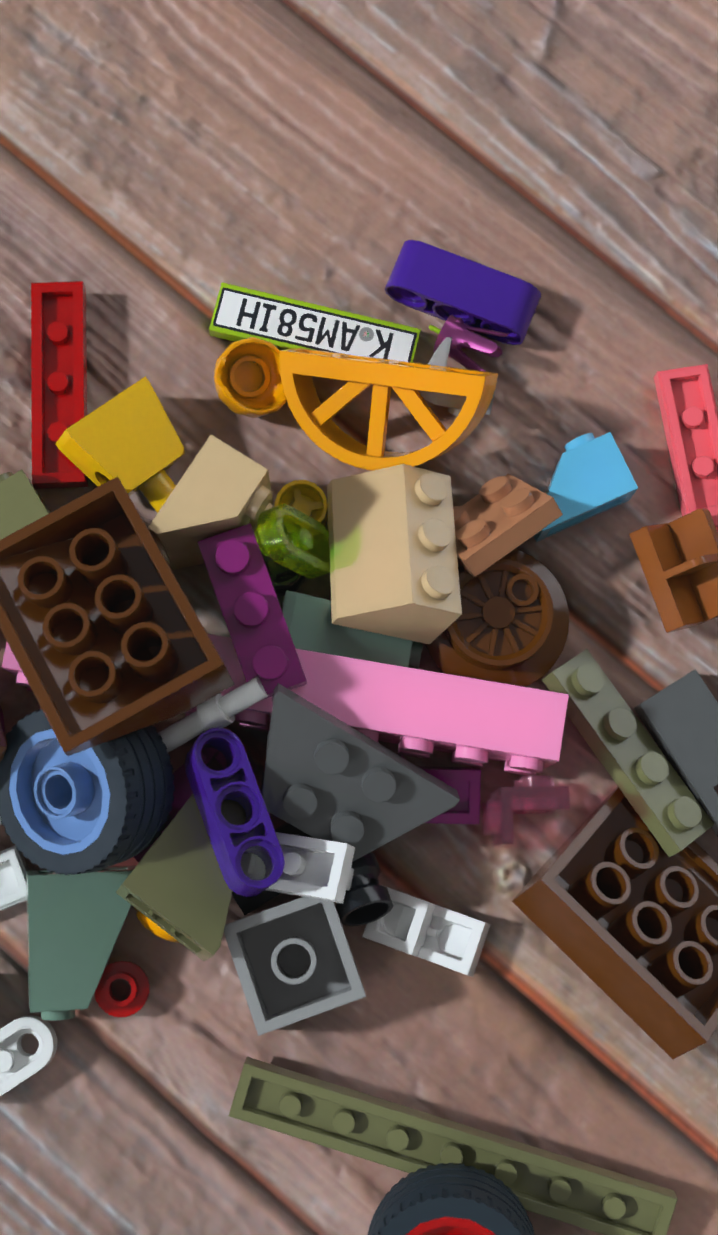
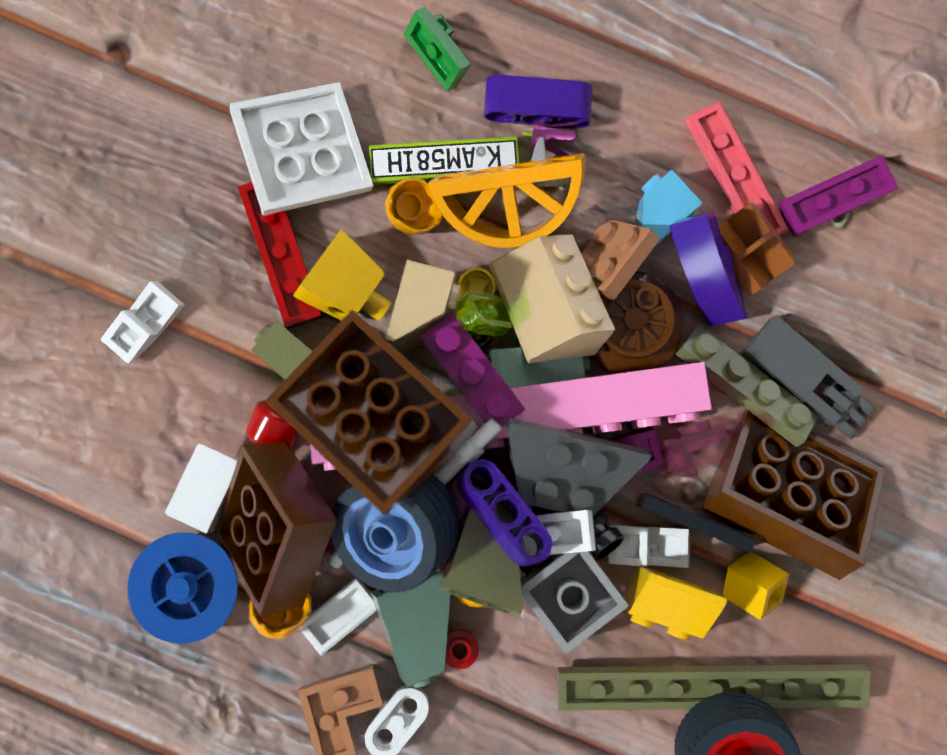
camera: 20 degrees left, 5 degrees up
(130, 258) = (301, 148): none -> white plate
(349, 177) = (433, 43): none -> green hinge
(428, 1016) = (672, 603): none -> yellow slope
(499, 916) = (696, 522): none -> black tile
(554, 1030) = (755, 585): none -> yellow panel
(620, 577) = (709, 268): none -> dark purple slope

